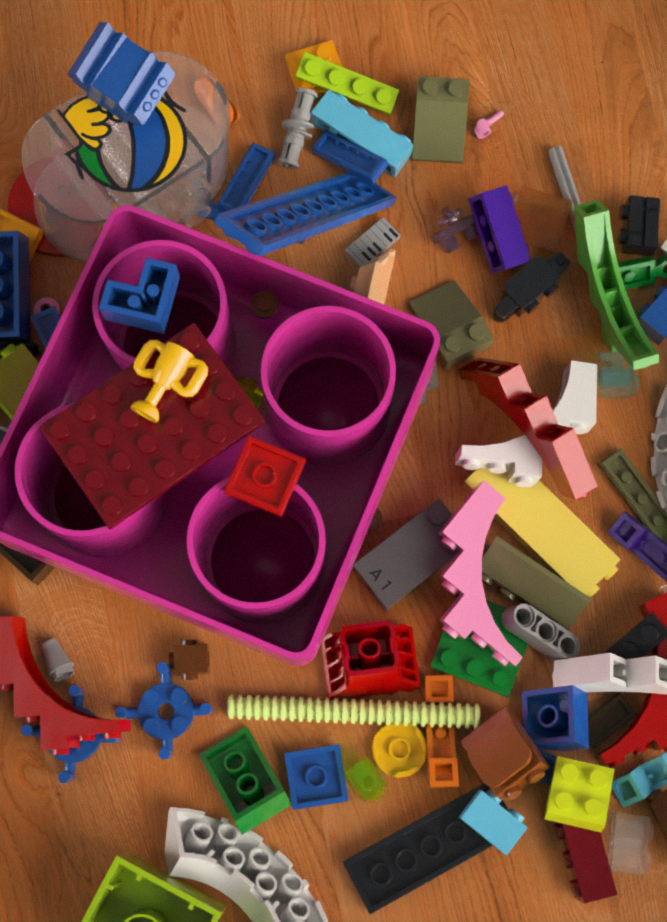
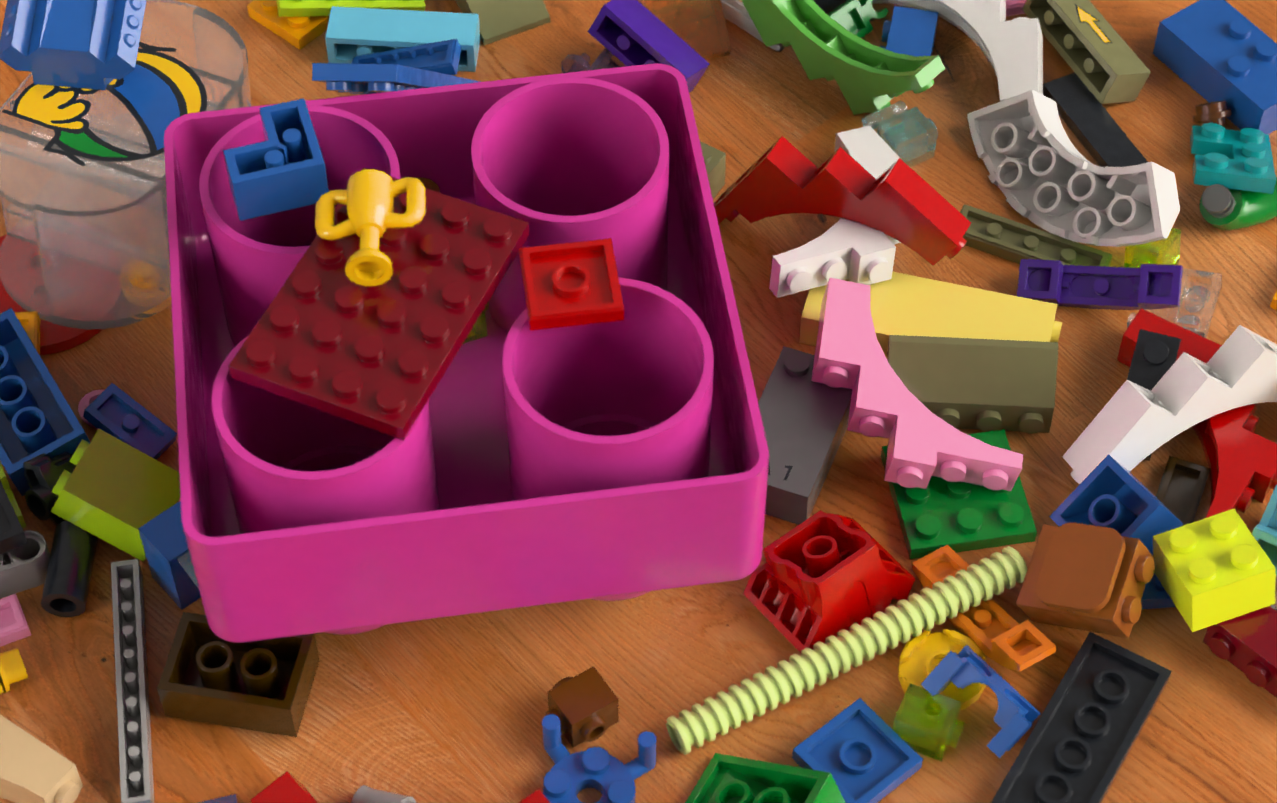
camera: 30 degrees left, 25 degrees down
(297, 127) = (311, 49): light grey piece -> none
(405, 771) = (1014, 711): none -> blue piece
(493, 822) = (1131, 668): medium azure brick -> none
(529, 285) = (727, 94): black hinge -> none
(552, 632) = (1023, 426): light grey beam -> none

